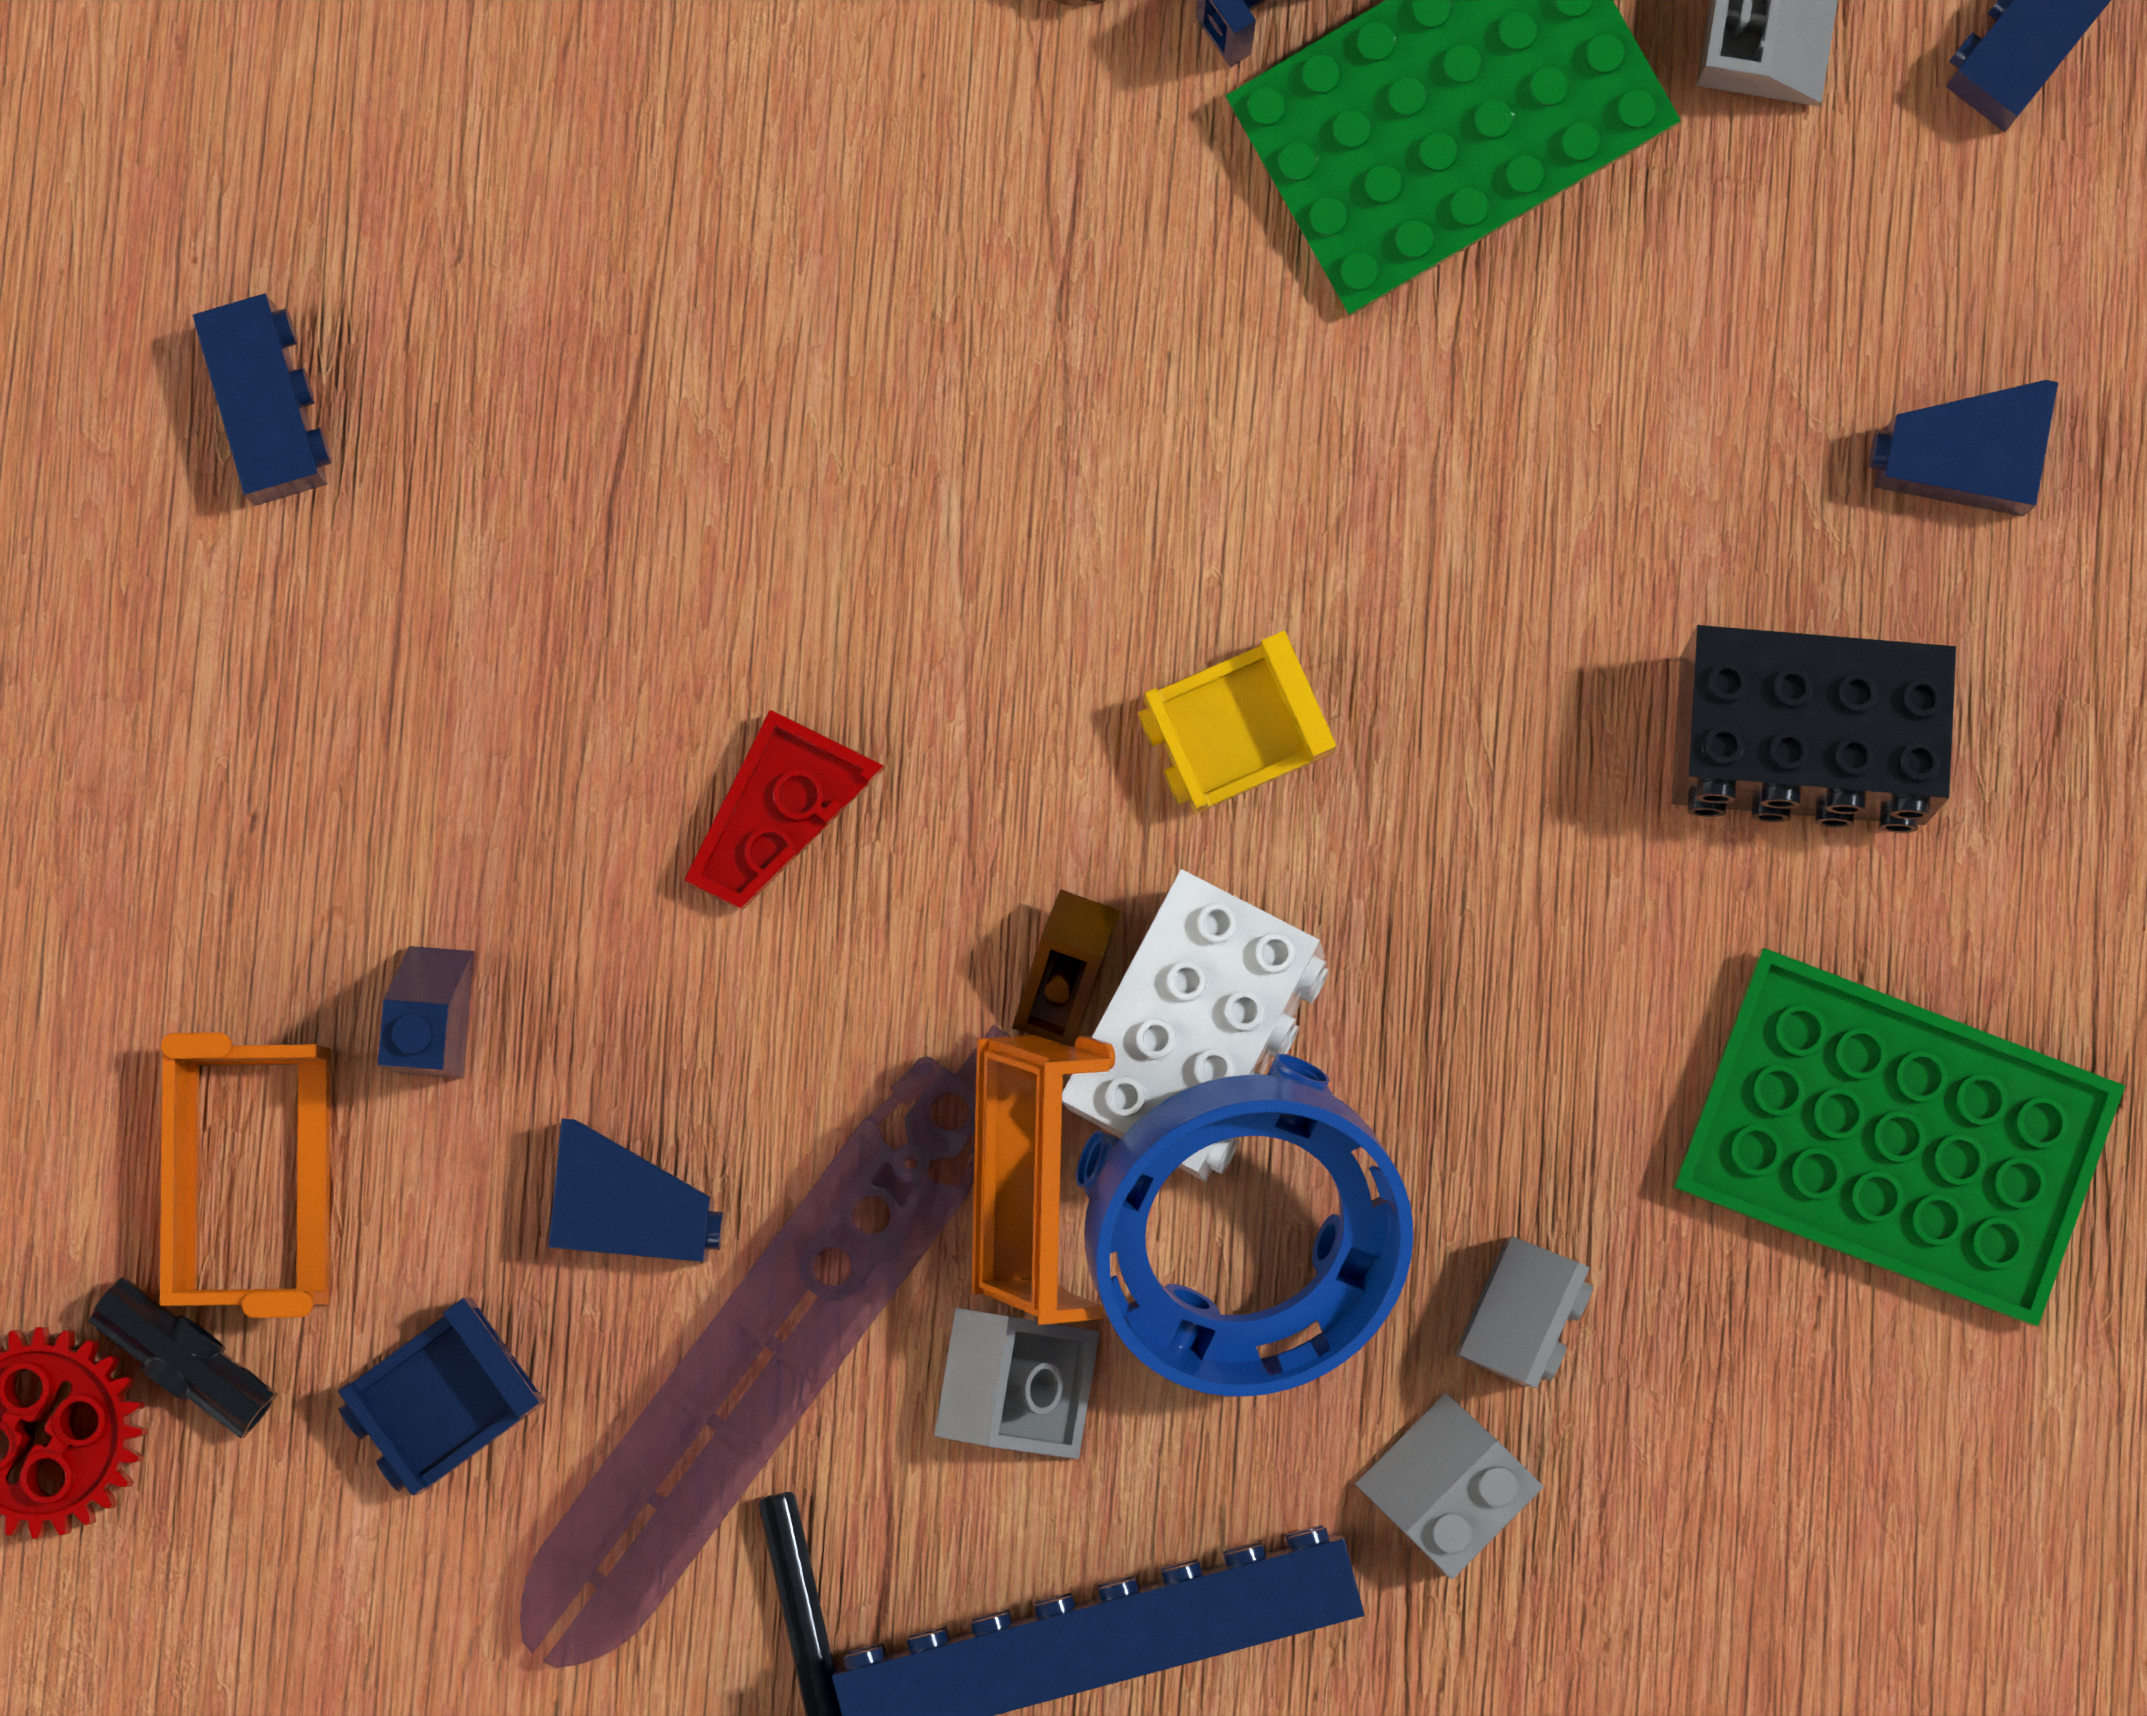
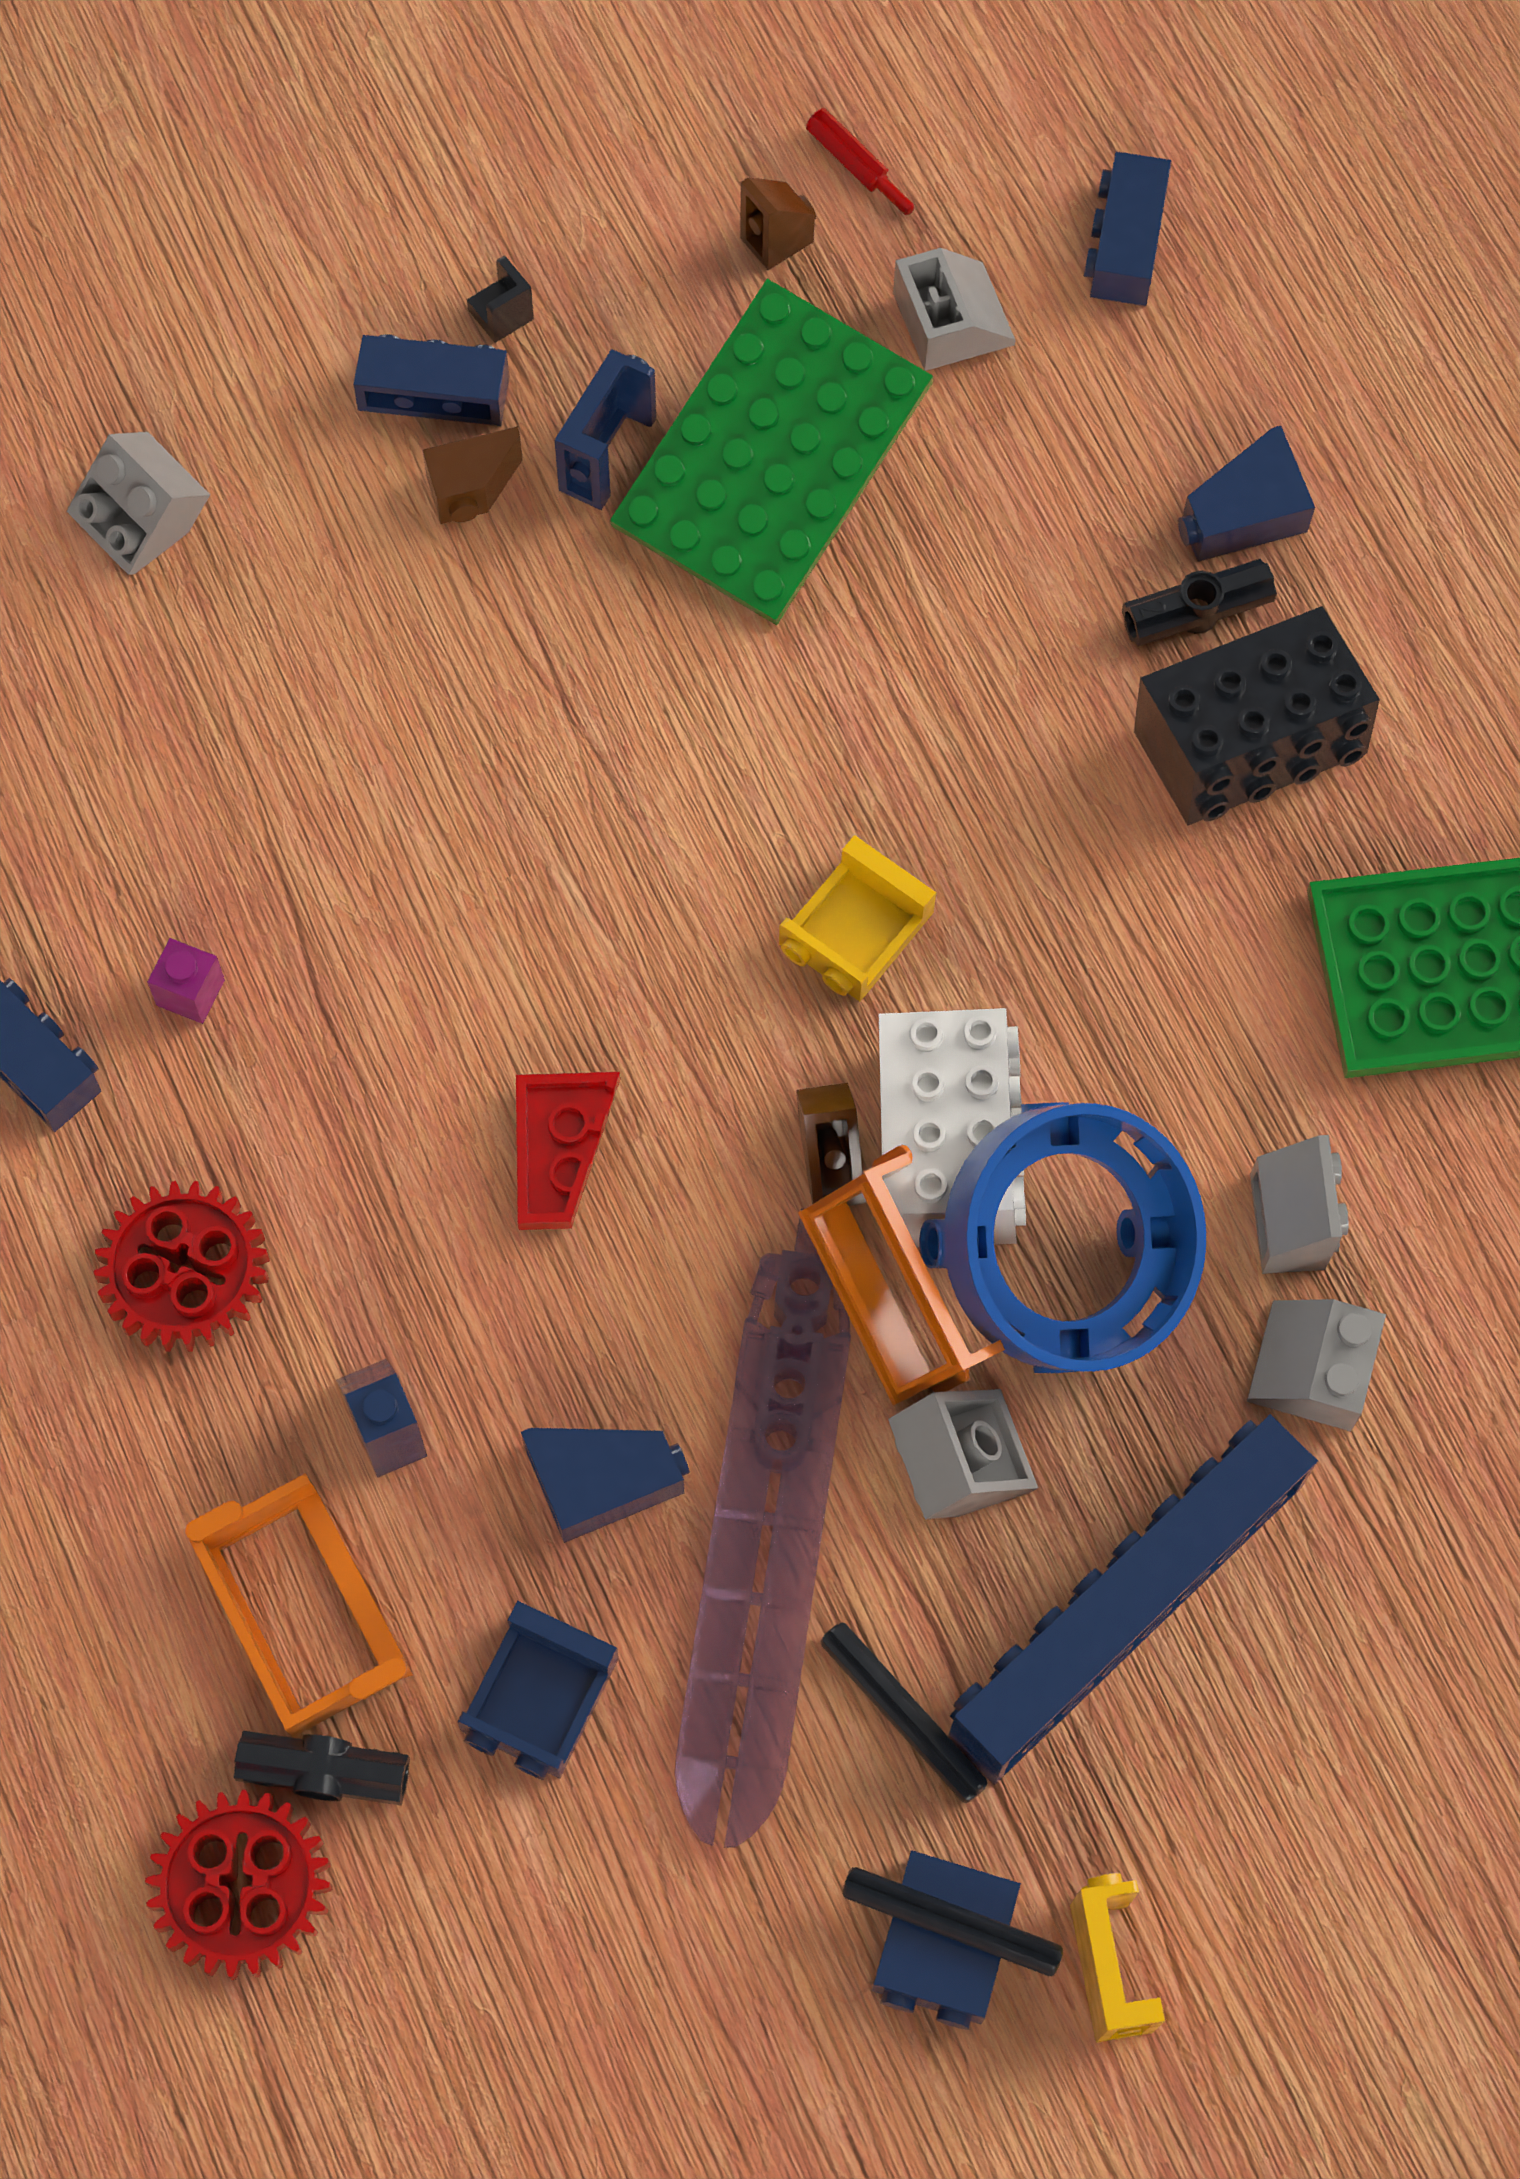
camera: 30 degrees left, 15 degrees down
(352, 701) = (160, 1306): none -> red gear
(473, 411) = (186, 980): none -> magenta brick
(1880, 549) = (1224, 592): none -> black piece

